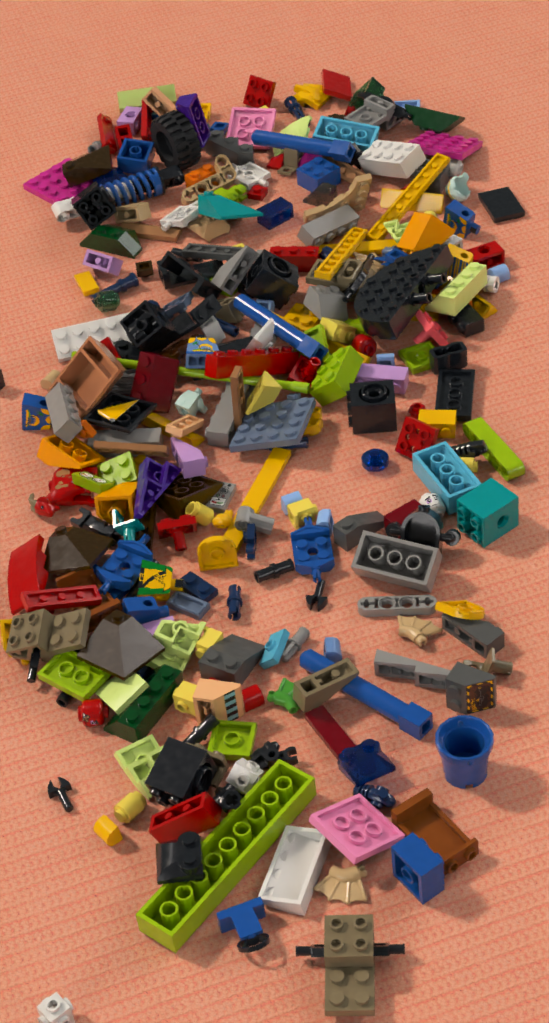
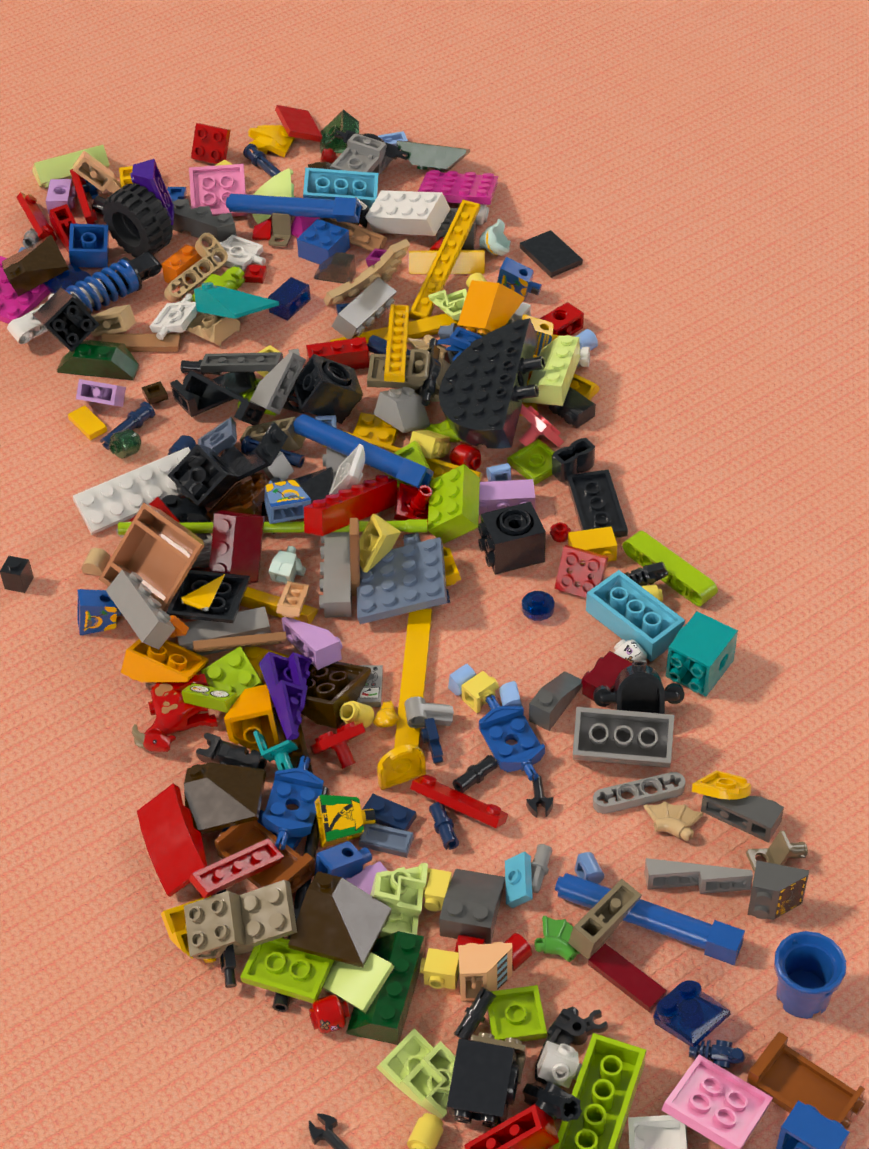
camera: 20 degrees left, 5 degrees up
(236, 575) = (486, 813): none -> red plate

